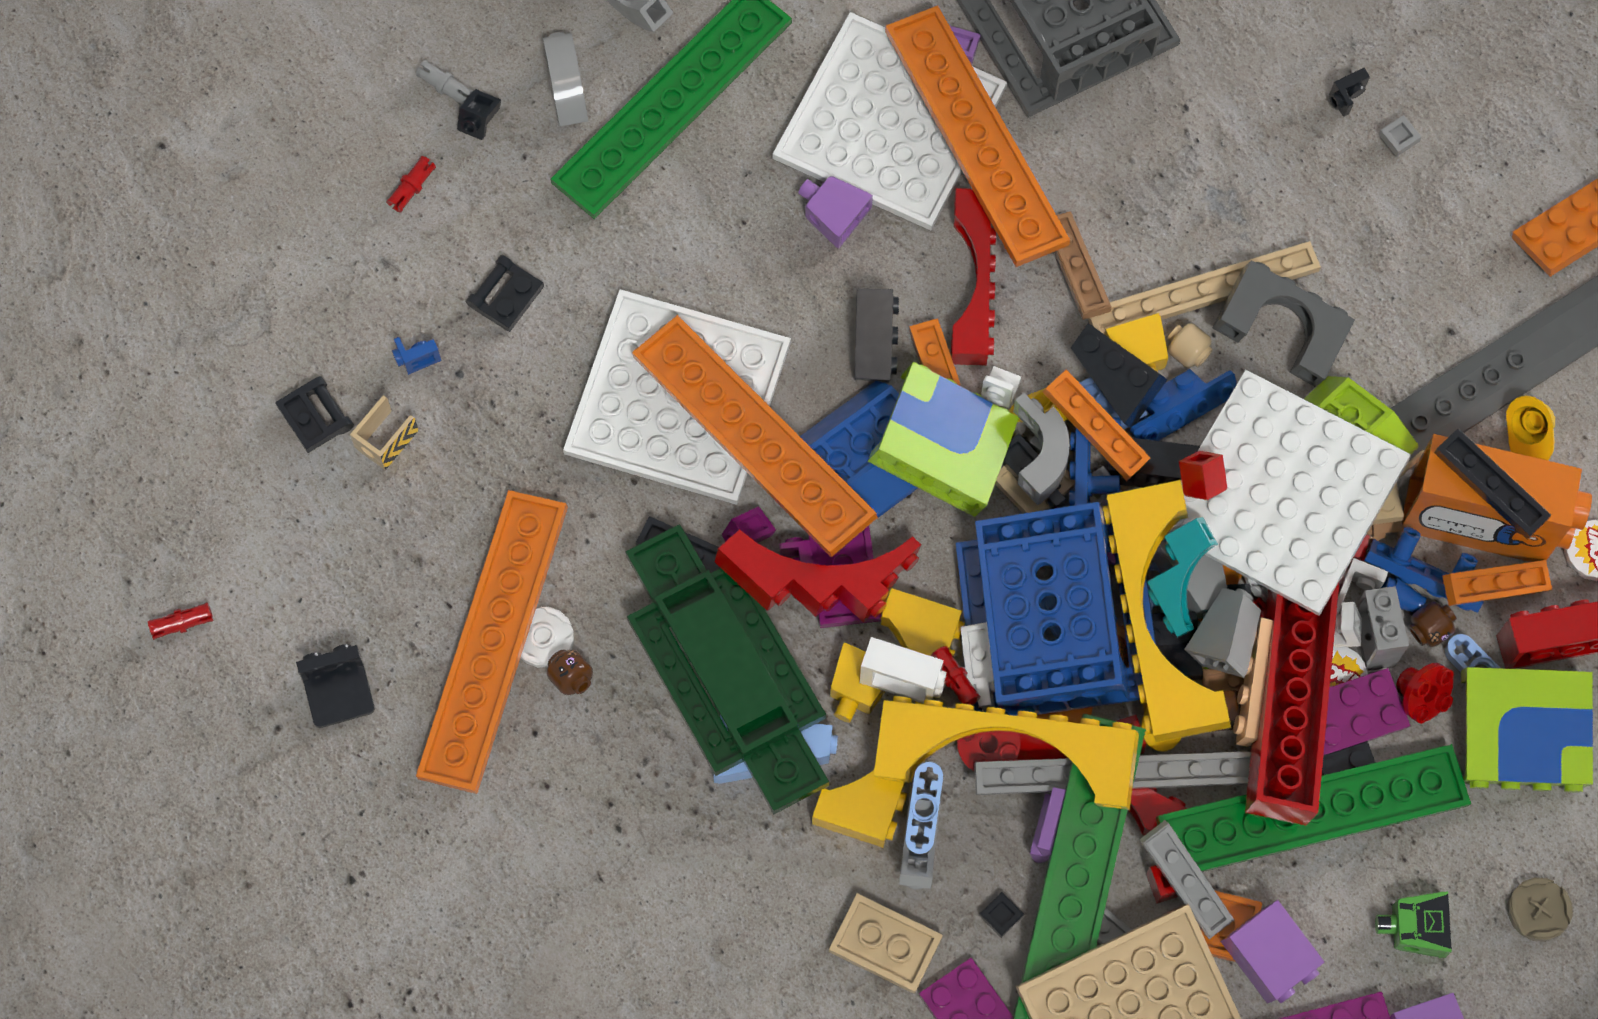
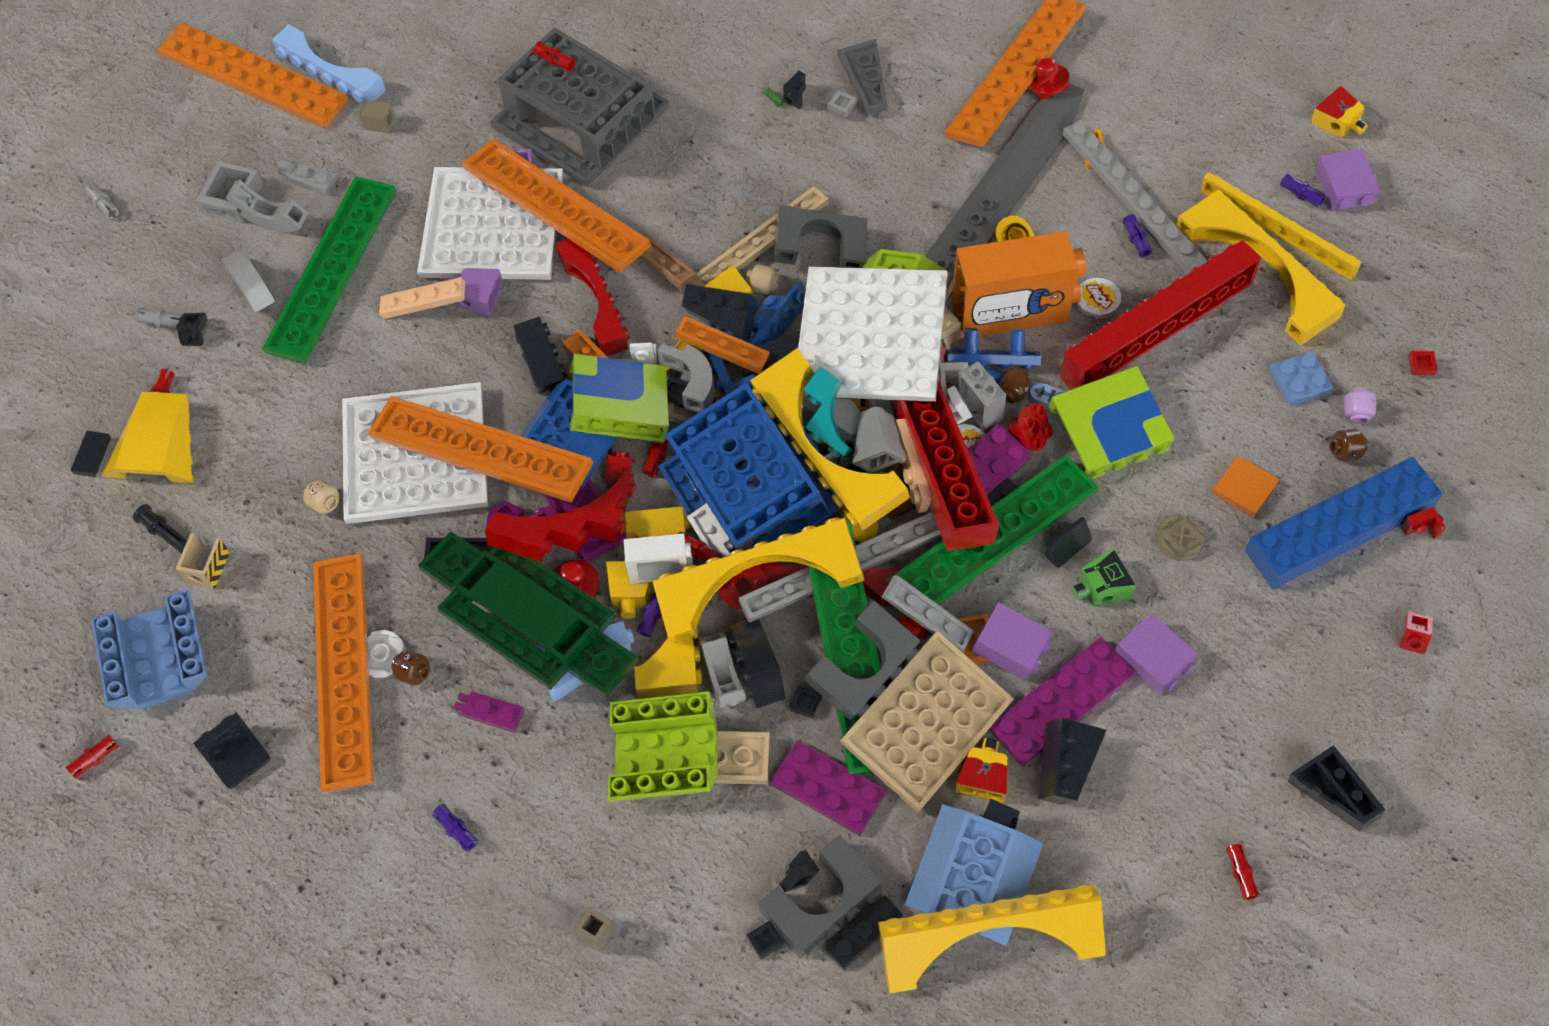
camera: 20 degrees left, 10 degrees down
(286, 524) = (150, 654): none -> medium blue slope
(304, 232) = (90, 453): none -> black tile
(305, 419) = (138, 576): black plate -> none
(348, 362) = (158, 526): none -> black pin
(383, 248) = (155, 439): none -> yellow wedge
(418, 357) = (208, 501): blue bracket -> none
(513, 298) = (265, 439): black plate -> none
(546, 887) = (455, 827): none -> dark purple pin
(548, 408) = (321, 497): none -> tan head
(639, 764) = (490, 711): none -> magenta hinge
(765, 193) = (422, 298): none -> light nougat plate
(806, 643) = (581, 575): none -> red plate
(814, 902) = (663, 746): none -> lime slope
(866, 731) = (650, 617): none -> dark purple pin
(909, 522) = (617, 465): none -> red bracket
(936, 784) = (716, 625): light blue beam -> none
(960, 525) = (656, 455): none -> red pin
(966, 841) = (757, 661): none -> black wedge
(1047, 825) = (811, 623): medium lavender slope -> none
(1129, 905) = (852, 694): none -> dark grey arch
(1203, 475) = (812, 341): red panel -> none
(1318, 87) = (774, 97): none -> bright green piece
(1401, 858) = (1069, 542): none -> black slope
(1449, 103) = (865, 74): none -> dark grey wing
(1492, 483) = (1012, 260): black plate -> none
(1497, 582) = (1044, 339): orange plate -> none

